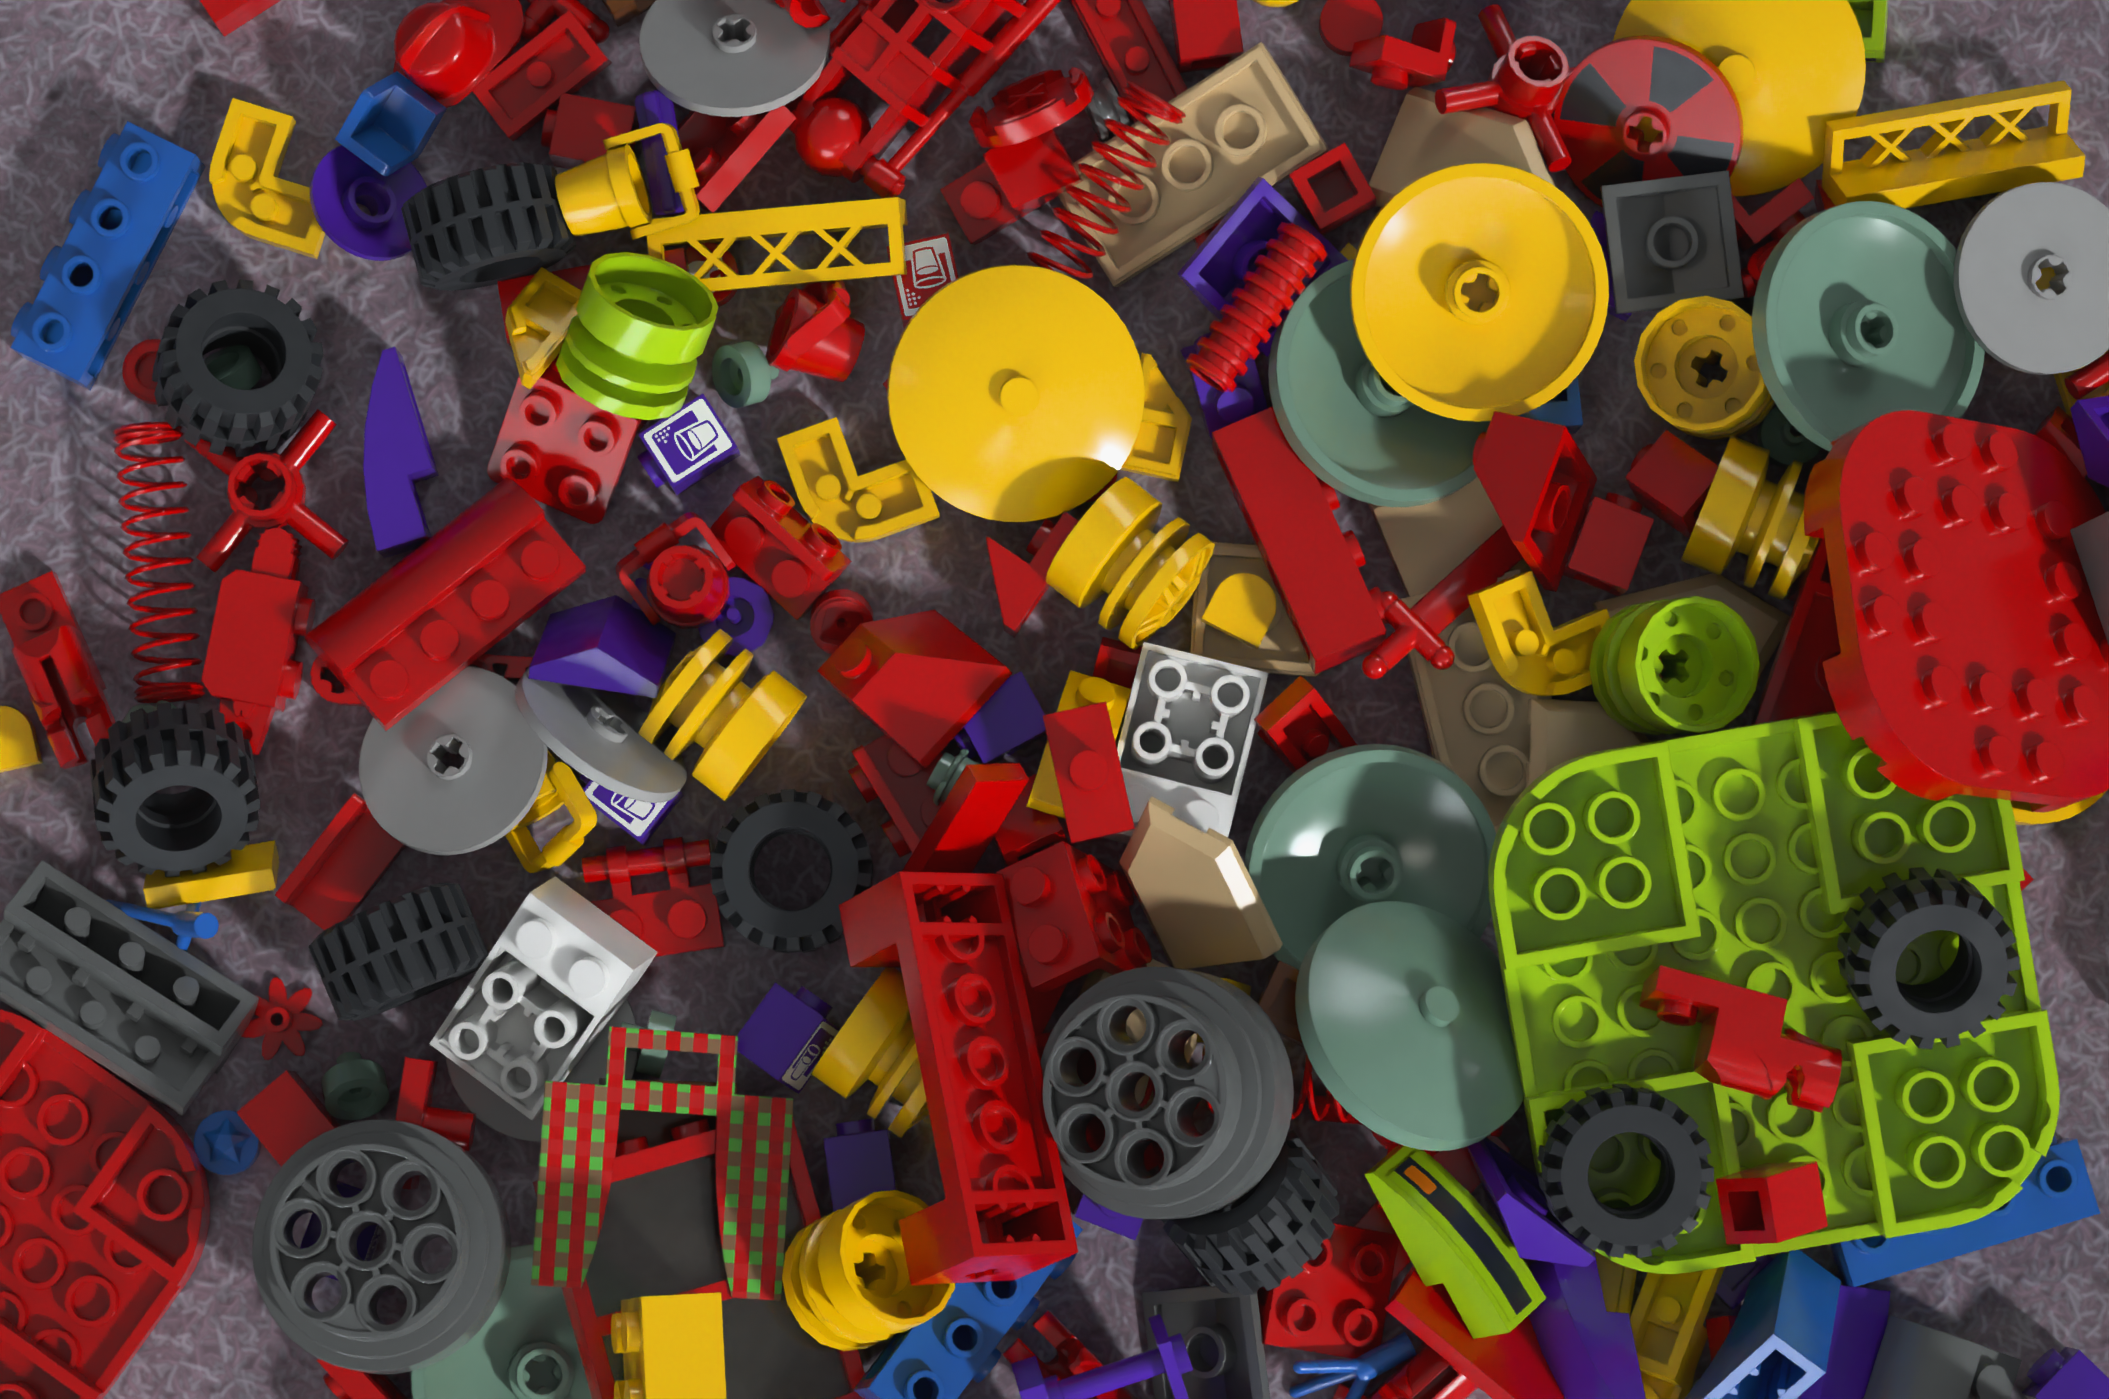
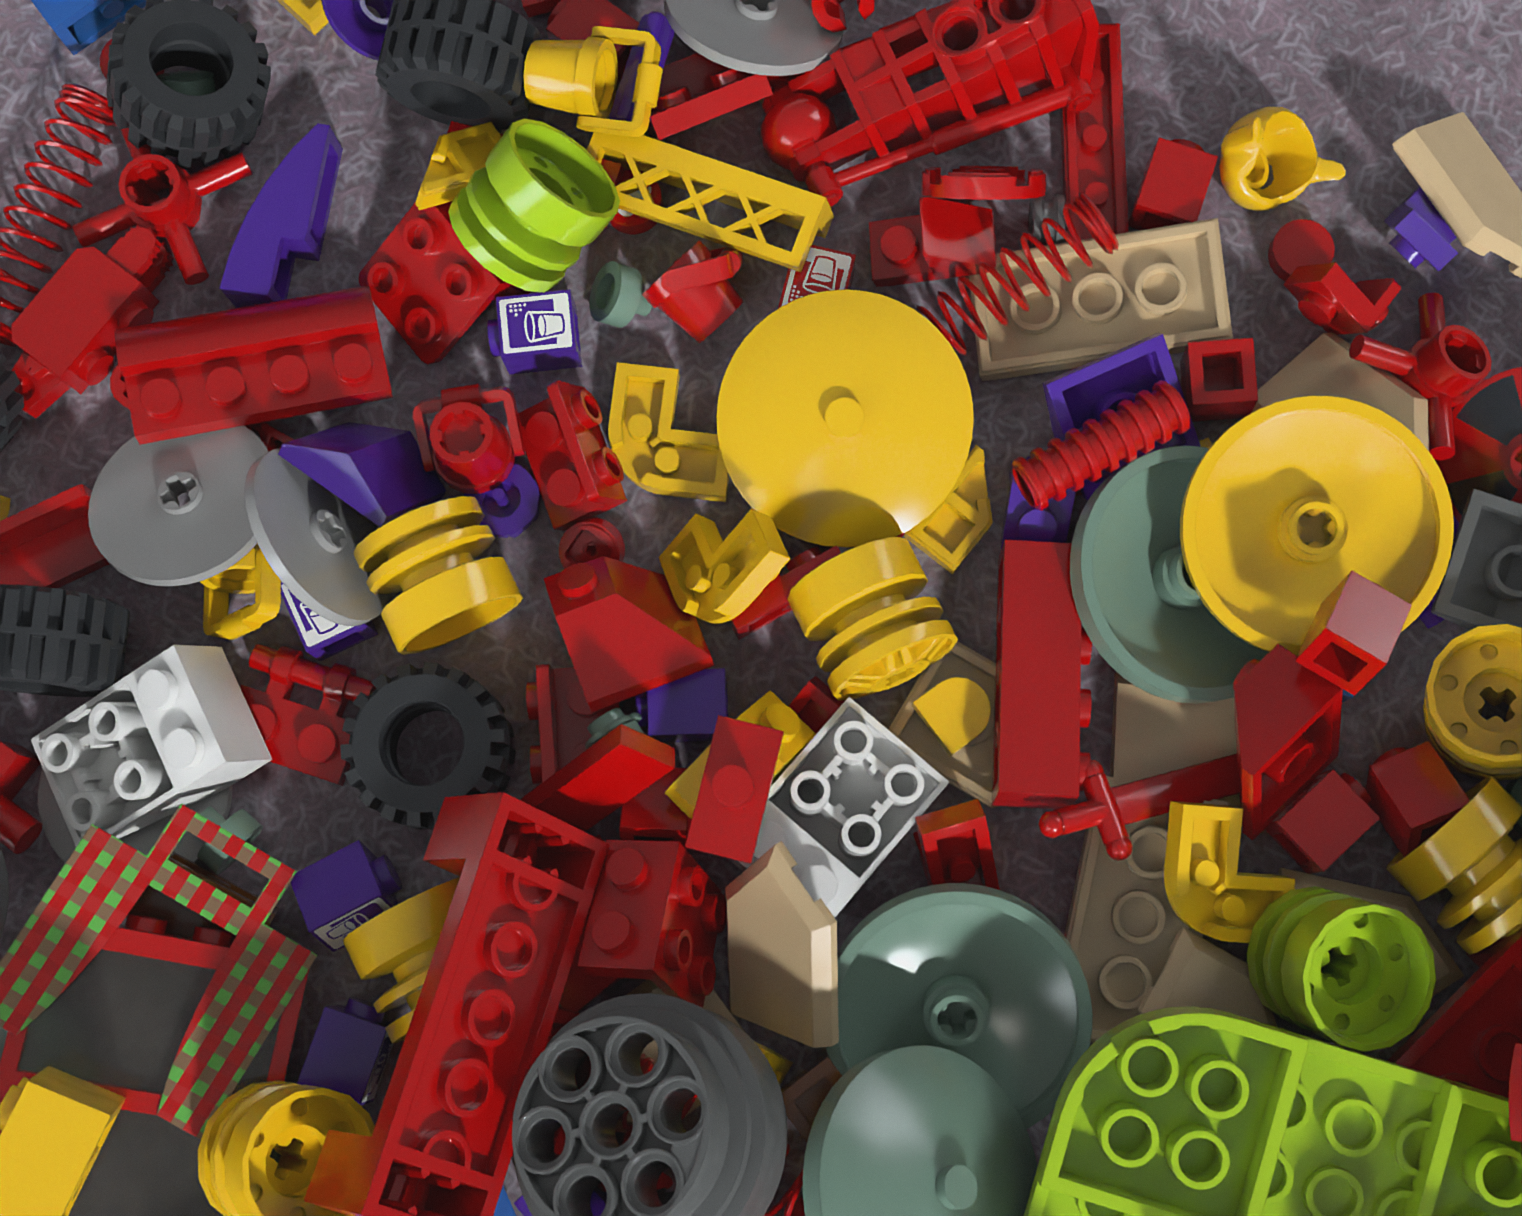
camera: 40 degrees right, 5 degrees down
(975, 594) = (719, 576): none -> yellow plate
(1551, 375) = (1353, 633): none -> brick

